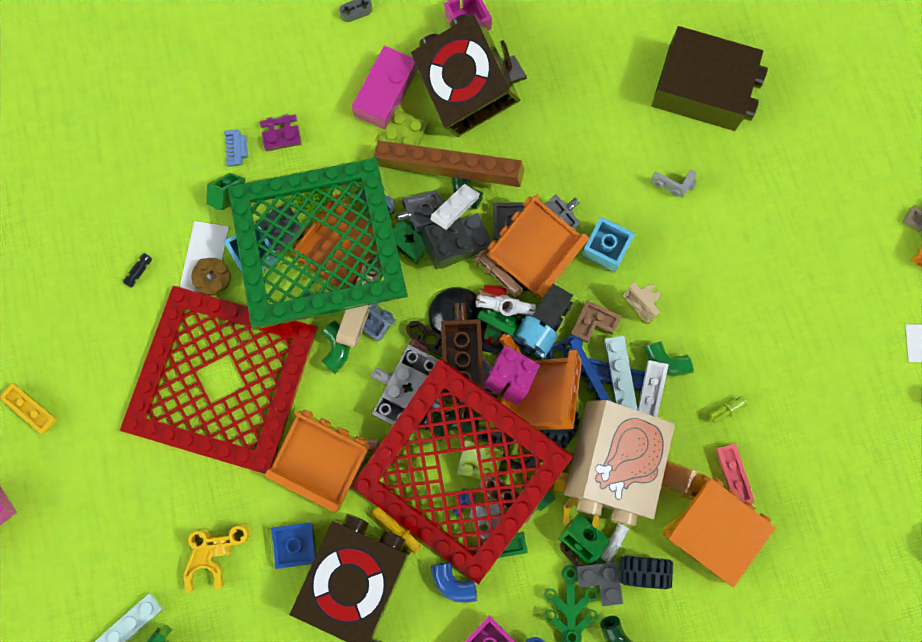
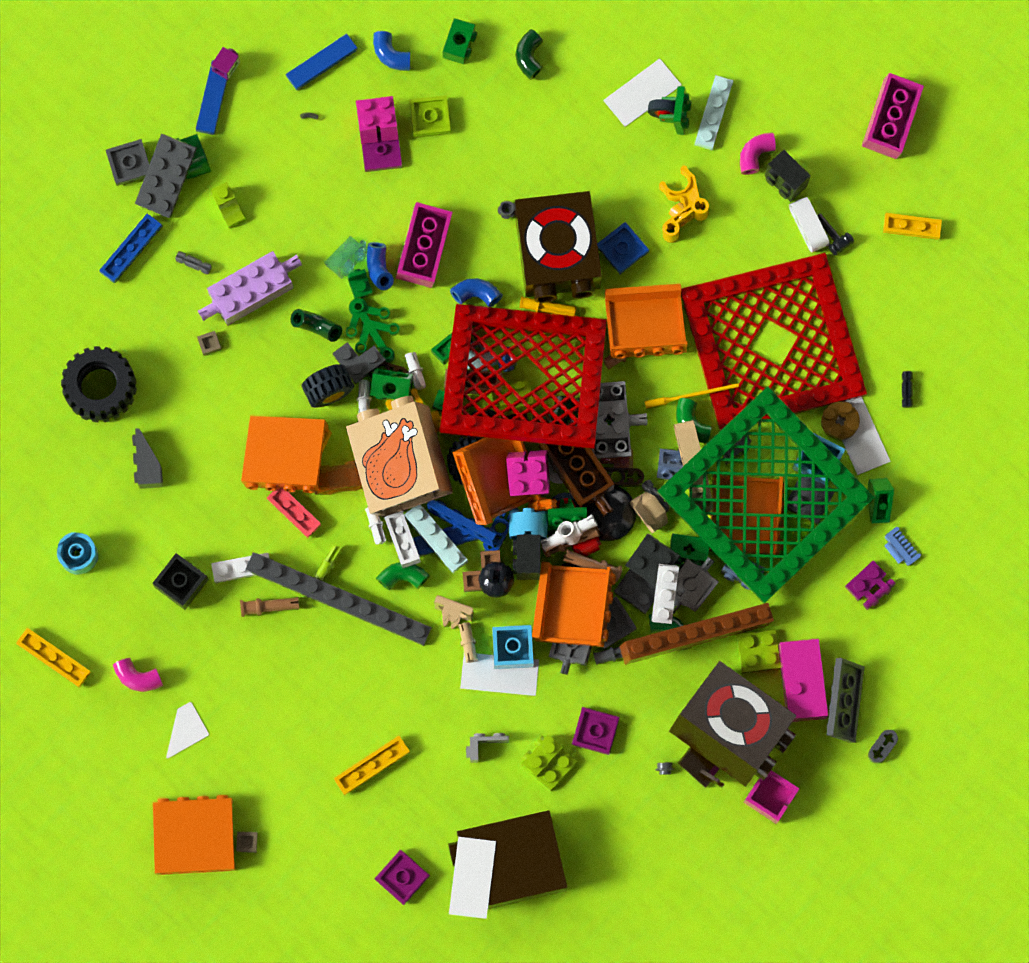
camera: 145 degrees right, 0 degrees up
(100, 432) = (839, 243): none -> black piece
(100, 520) = (787, 176): none -> pearl dark grey brick
(112, 568) = (752, 151): none -> dark pink cylinder
(114, 465) = (809, 224): none -> white beam
(347, 381) = (664, 400): none -> yellow piece
(362, 51) = (845, 700): none -> dark grey plate
(408, 306) = (648, 487): none -> dark grey axle
(422, 292) = (650, 511): none -> tan slope
(521, 194) = (607, 655): none -> dark grey axle
(537, 86) = (665, 768): none -> dark grey plate
(552, 541) = (416, 370): none -> white axle
(576, 144) = (595, 731): none -> magenta plate
(588, 315) = (496, 587): none -> black hair
(629, 142) = (548, 762): none -> lime plate
(641, 272) = (468, 642): none -> tan pin
(645, 244) = (483, 677): none -> white sticker
(669, 410) = (376, 528): none -> white axle
(738, 375) = (338, 599): none -> dark grey plate
(752, 73) = (472, 877): none -> white sticker
(779, 219) = (371, 765): none -> yellow plate
(800, 120) = (402, 877): none -> magenta plate
(807, 452) = (232, 569): none -> white plate
(809, 406) = (258, 606): none -> medium nougat pin
(851, 599) = (148, 467): none -> dark grey slope
(874, 468) = (180, 581): none -> pearl dark grey brick

